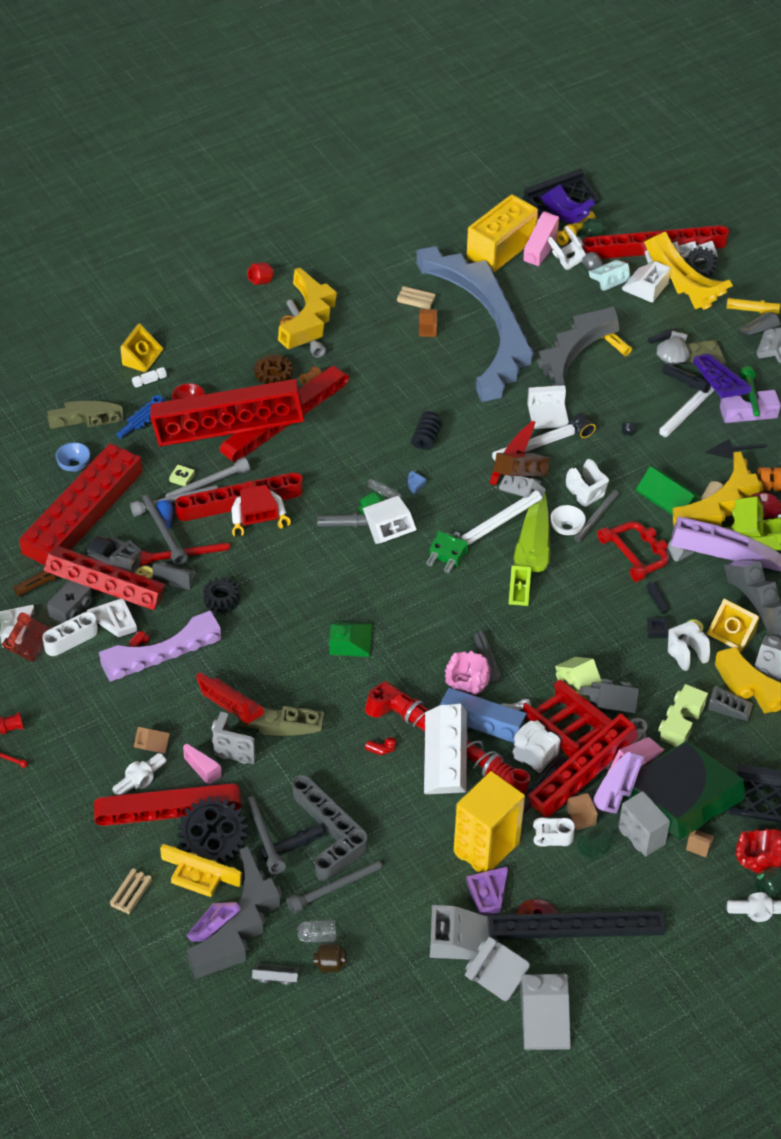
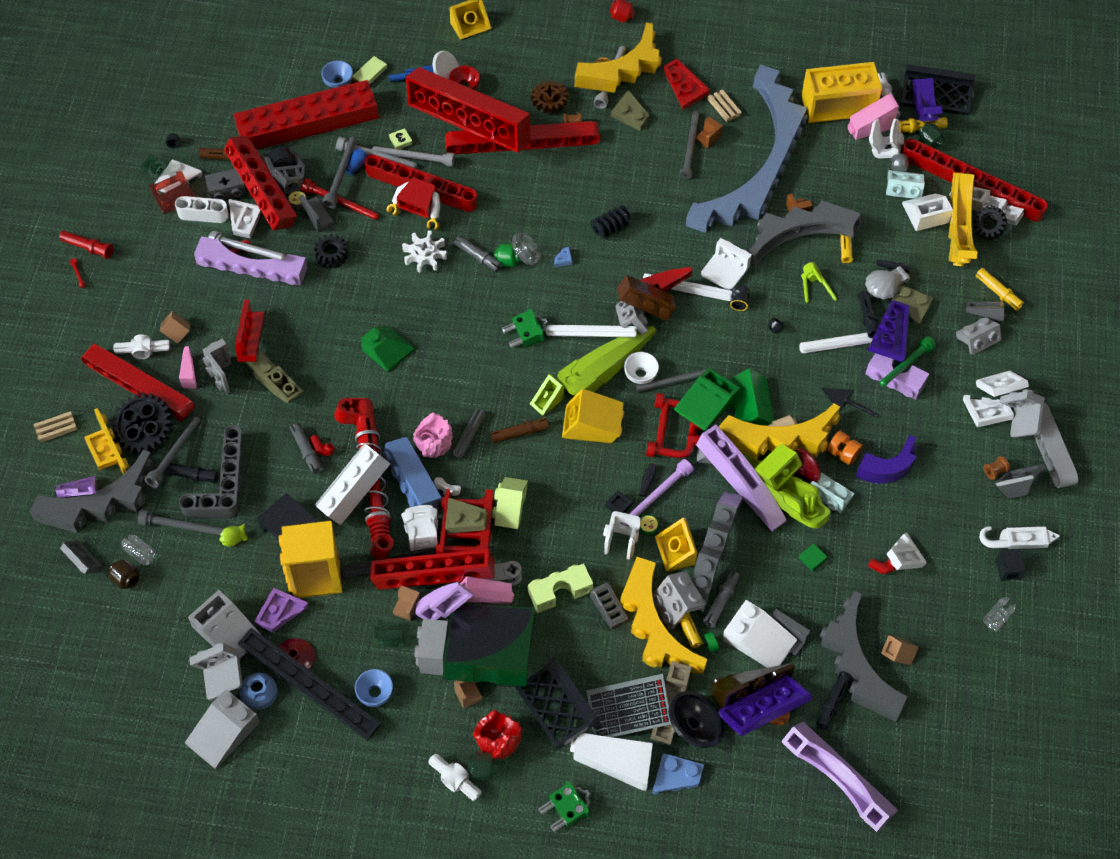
camera: 40 degrees right, 10 degrees up
(89, 412) = (384, 46): olive slope -> none
(96, 439) = (370, 70): none -> yellowish green tile
(149, 377) = (456, 45): white axle -> none
(151, 634) = (247, 247): none -> light grey piece
(160, 392) = (444, 63): none -> white piece
(301, 545) = (424, 251): none -> white gear
(348, 344) = (630, 112): none -> olive wing
(369, 299) = (685, 84): none -> red wing
(380, 759) = (309, 454): none -> dark grey pin
(387, 862) = (233, 535): none -> lime animal
(389, 519) = (503, 274): white slope -> none
(424, 819) = (283, 513): none -> black panel
(442, 362) = (686, 172): none -> flat silver bar
(528, 622) = (528, 427): none -> reddish brown pin
(548, 336) = (799, 203): none -> dark orange panel
(549, 966) = (262, 698): none -> medium blue piece
(553, 831) = (367, 600): white piece -> none
(565, 711) = (464, 517): none -> olive wing
(571, 580) = (593, 418): none -> yellow slope
(585, 494) = (687, 359): white piece -> none
(611, 696) = (515, 530): dark grey hinge -> none
(614, 374) = (812, 274): none -> lime plant
(632, 882) = (372, 679): none -> medium blue piece
(643, 507) = (707, 399): none -> green slope
(675, 571) = (683, 469): none -> lavender piece

